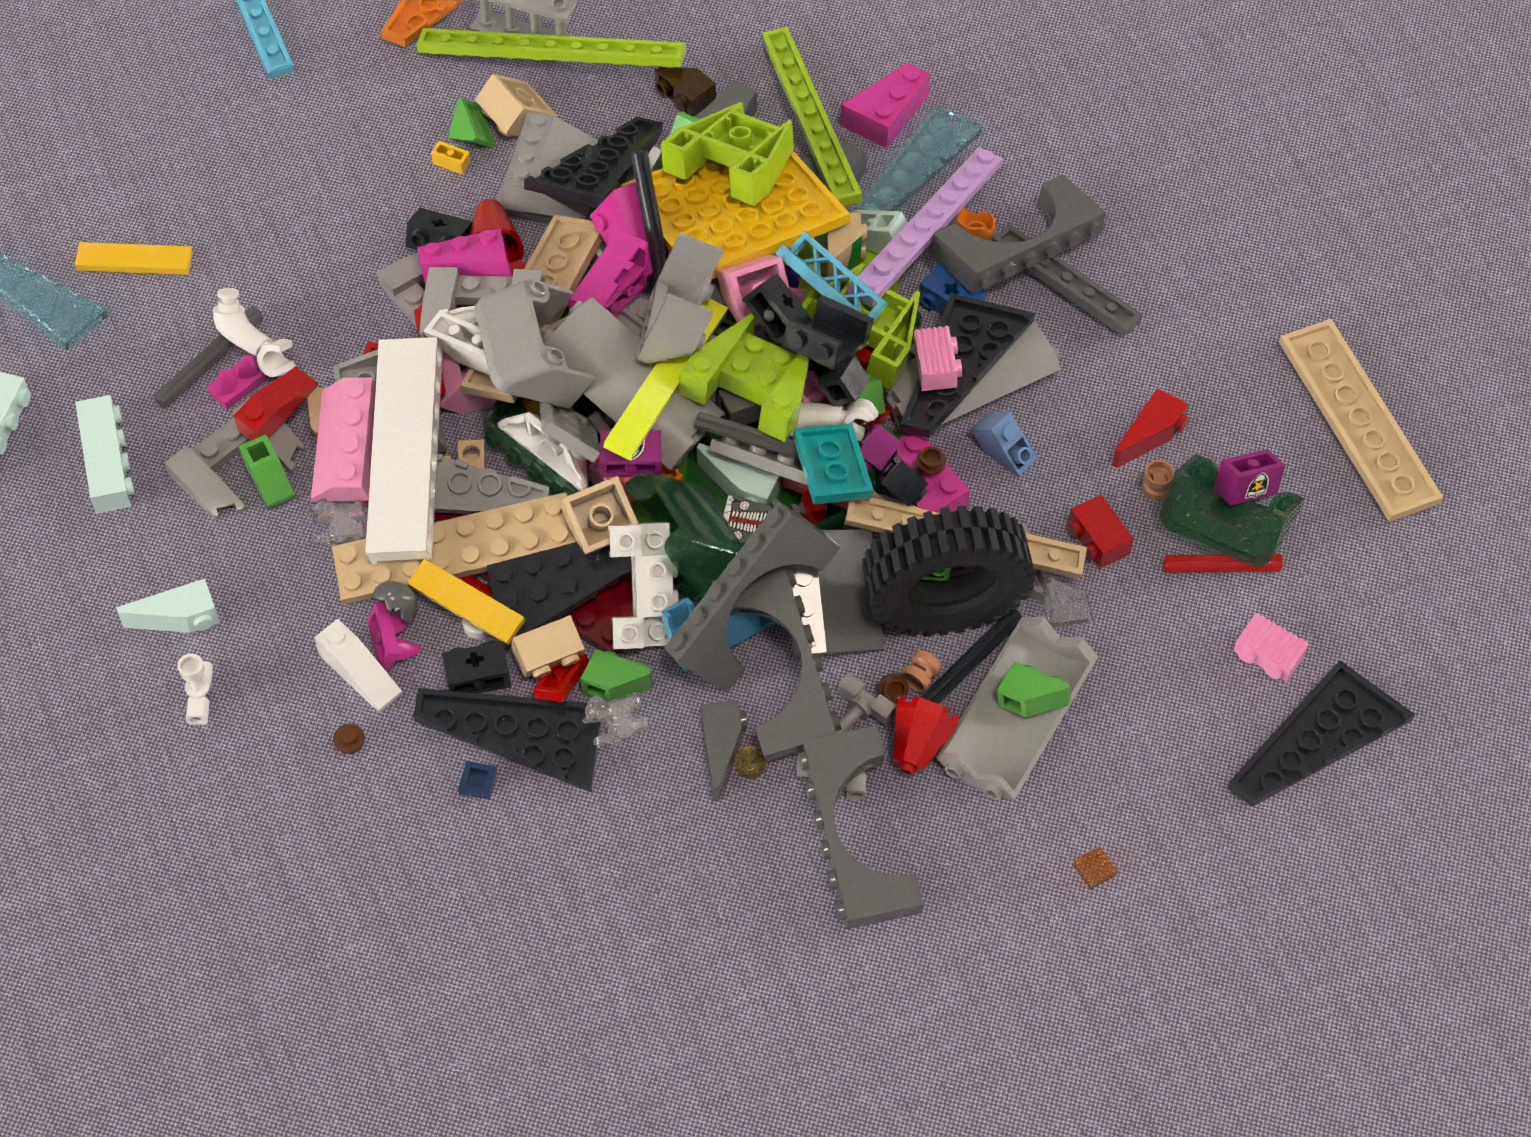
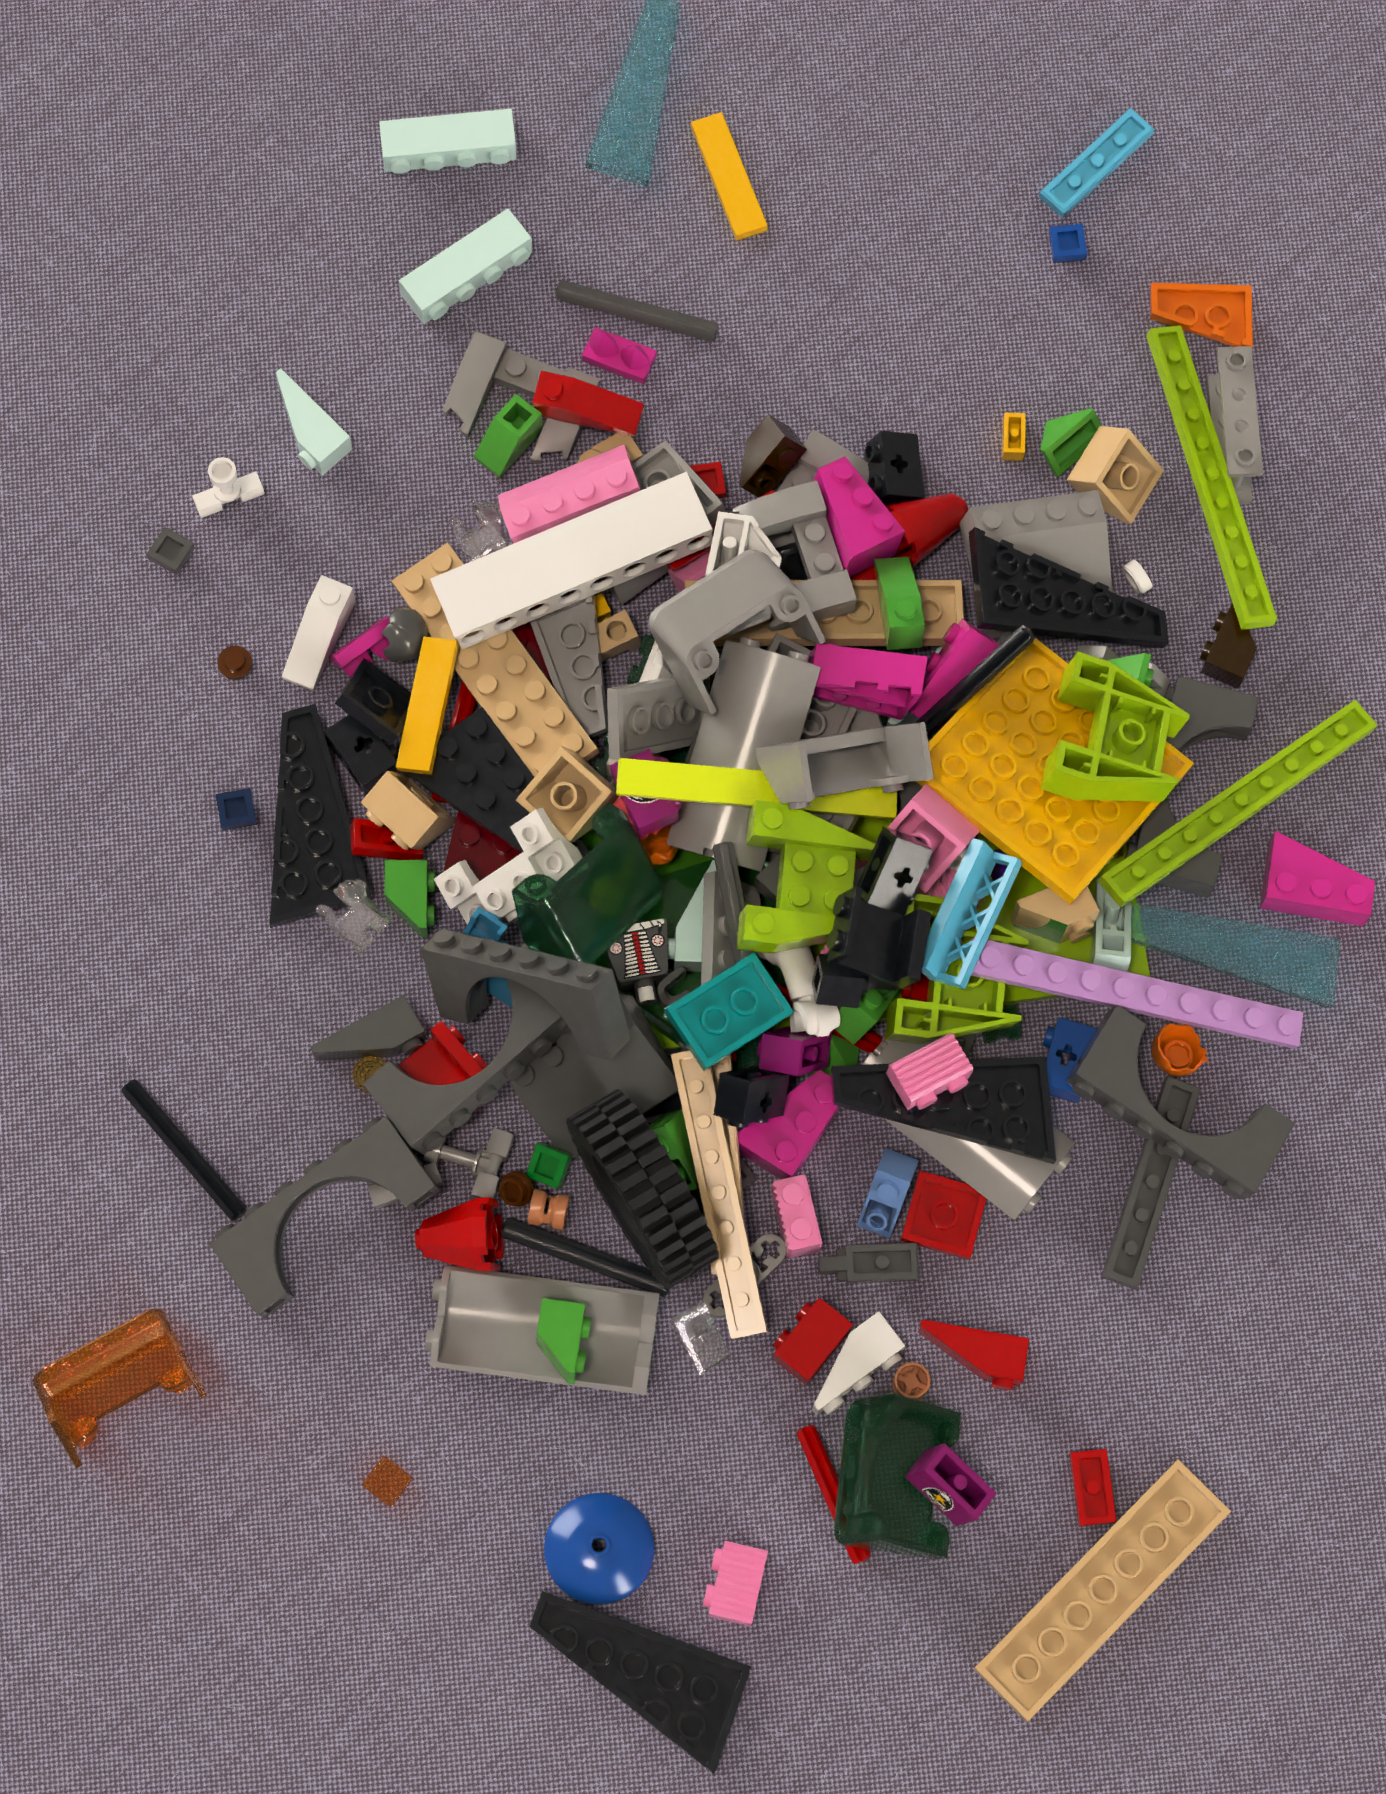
camera: 65 degrees right, 15 degrees up
(225, 751) = (170, 550): none -> dark grey plate
(234, 326) = (669, 324): white piece -> none
(318, 70) = (1067, 243): none -> blue plate
(382, 306) = (769, 456): none -> dark brown slope
(443, 637) = (375, 701): none -> black plate
(557, 248) = (899, 603): none -> bright green slope
(602, 122) = (1137, 577): none -> white tile
(751, 922) = (183, 1150): none -> black axle
(767, 694) = (443, 1059): none -> red bracket
(884, 658) = (549, 1165): none -> green plate
(919, 1033) = (111, 1374): none -> clear orange windscreen
(931, 460) = (802, 1118): reddish brown plate -> none
(1002, 498) = (796, 1216): none -> bright pink brick
(1040, 413) = (943, 1215): none -> red plate
(1054, 473) = (872, 1263): none -> dark grey hinge
(1125, 498) = (865, 1351): none -> white slope
(1201, 751) = (604, 1575): none -> blue dish
(1281, 397) = (1092, 1488): none -> red plate

